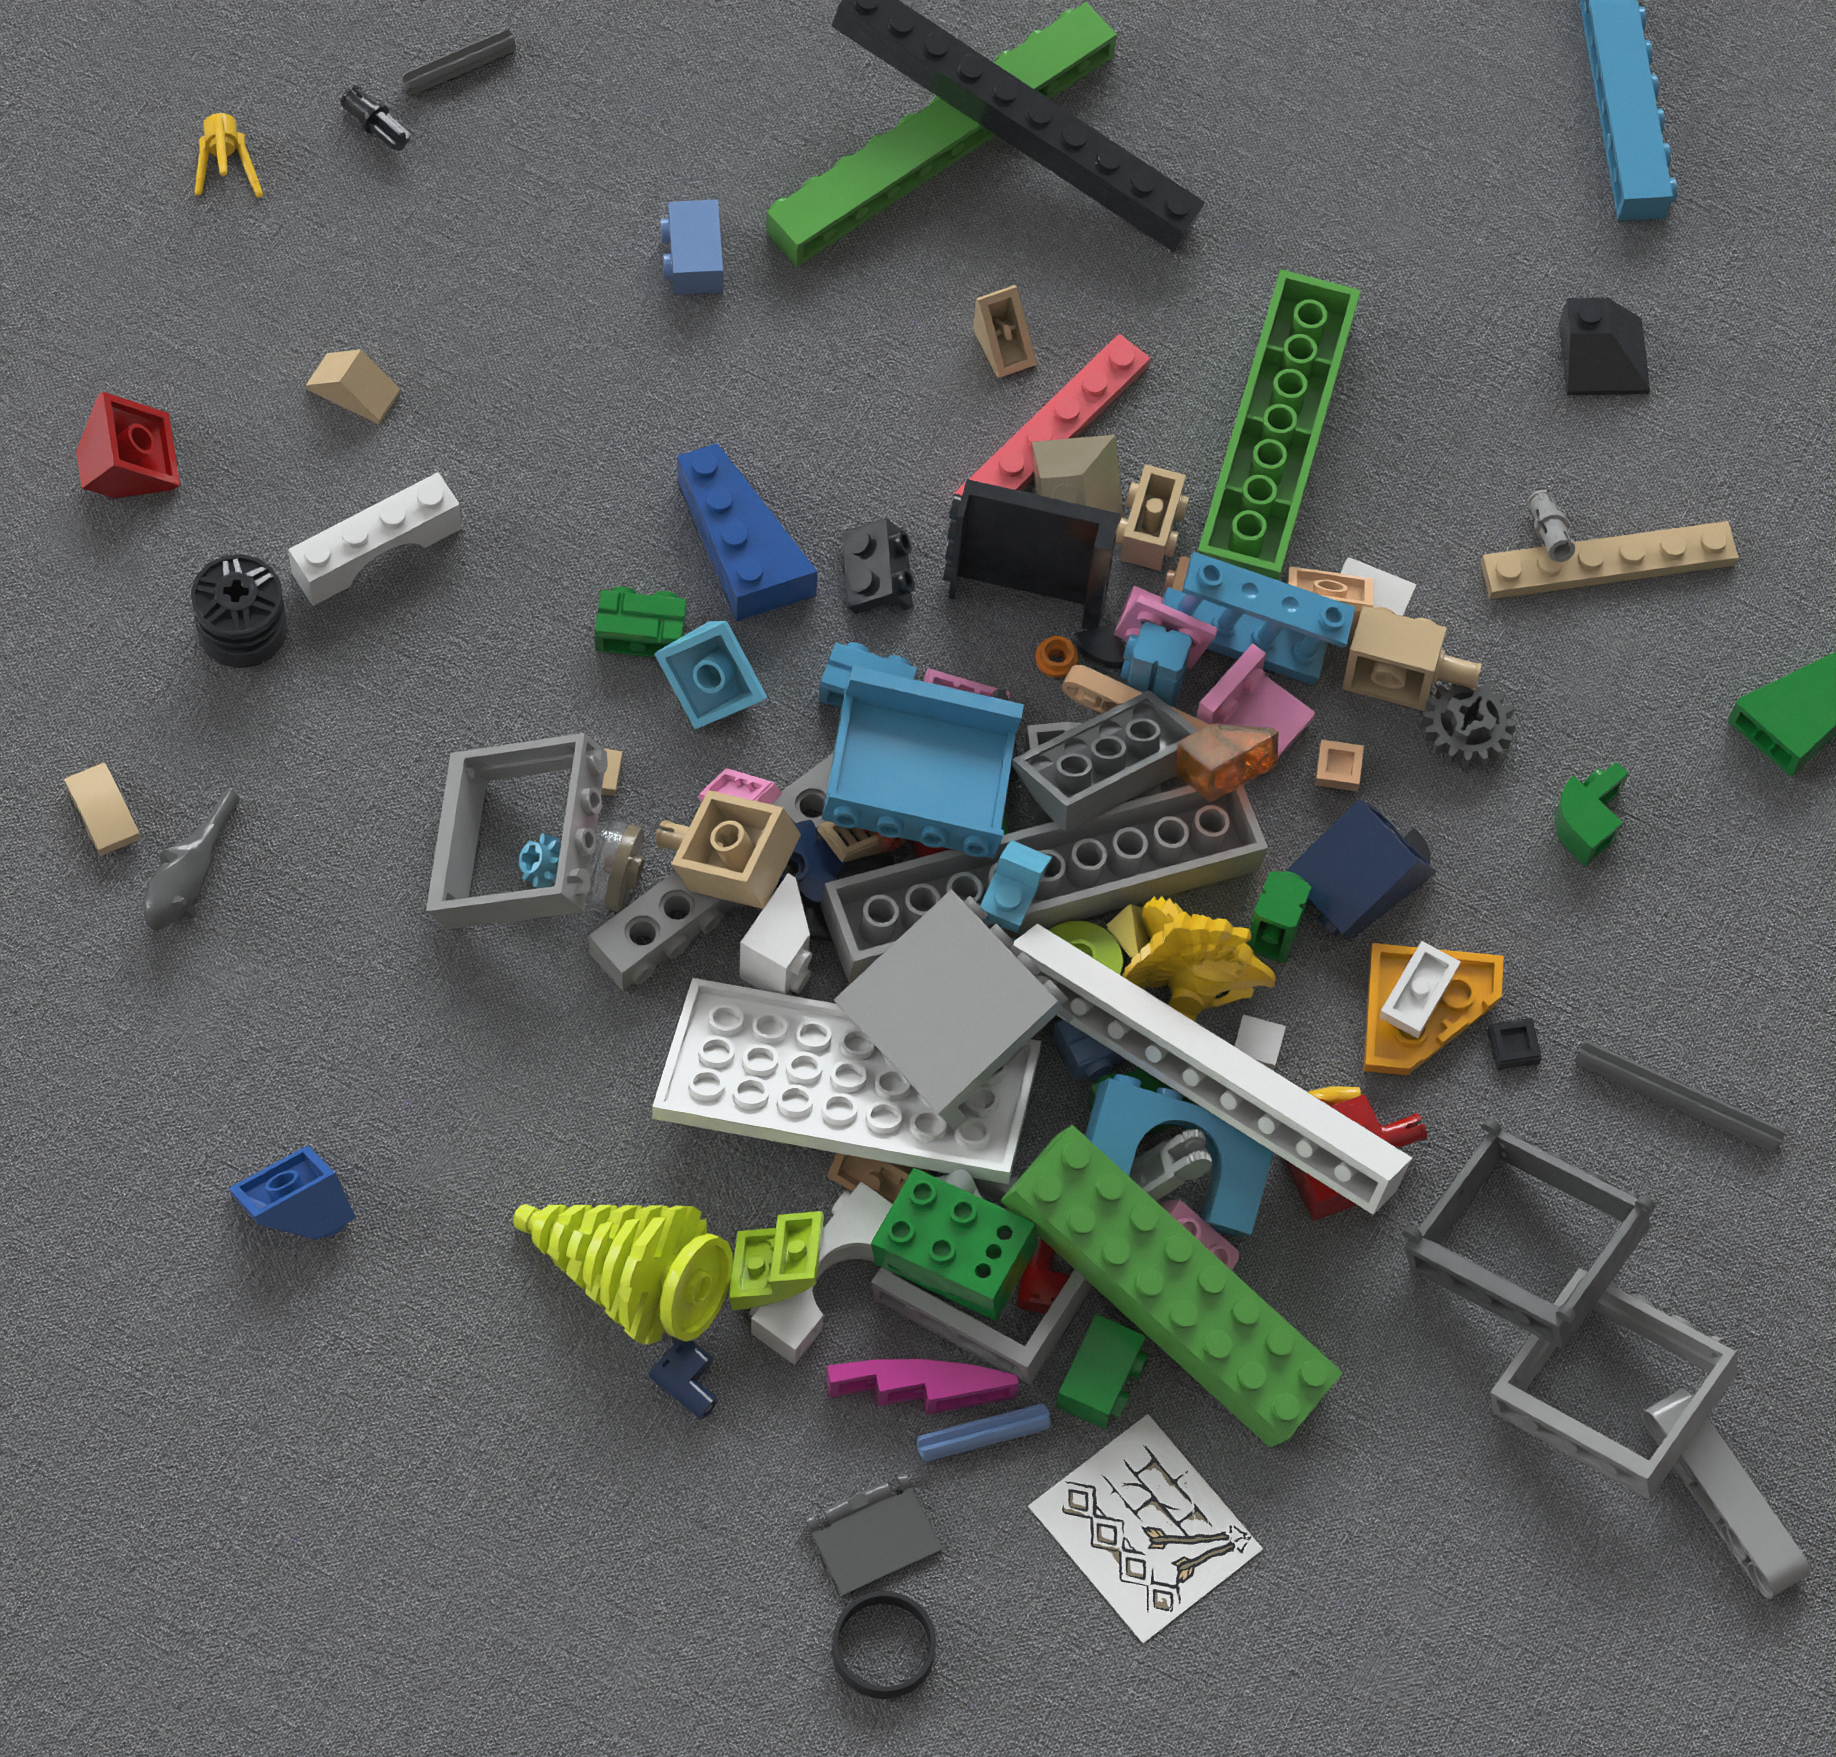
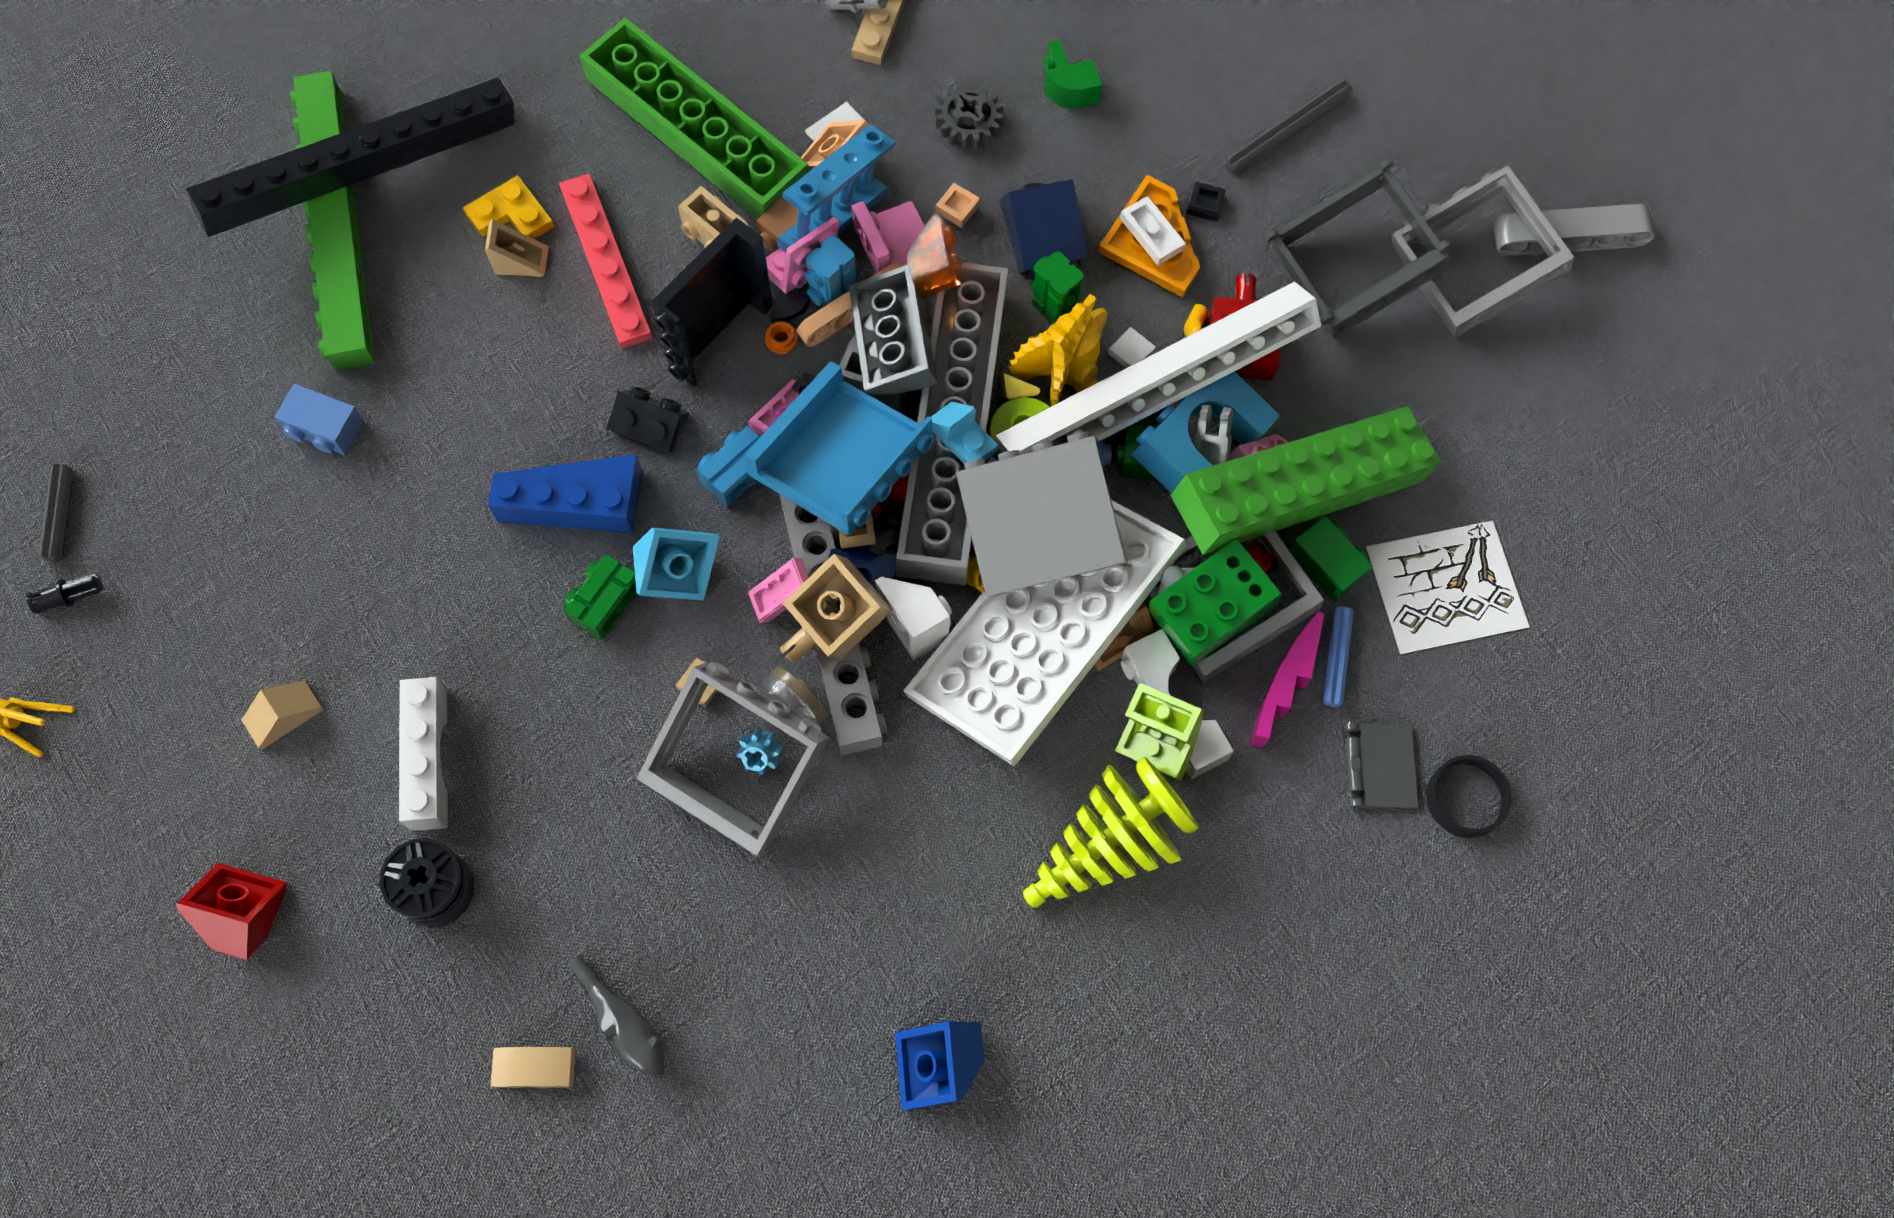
camera: 60 degrees left, 5 degrees up
(678, 1376) = (1207, 844): dark blue piece -> none
(1067, 302) = (510, 203): none -> yellow plate
(1079, 471) = (653, 257): dark tan slope -> none
(1401, 659) = (913, 123): tan brick -> none

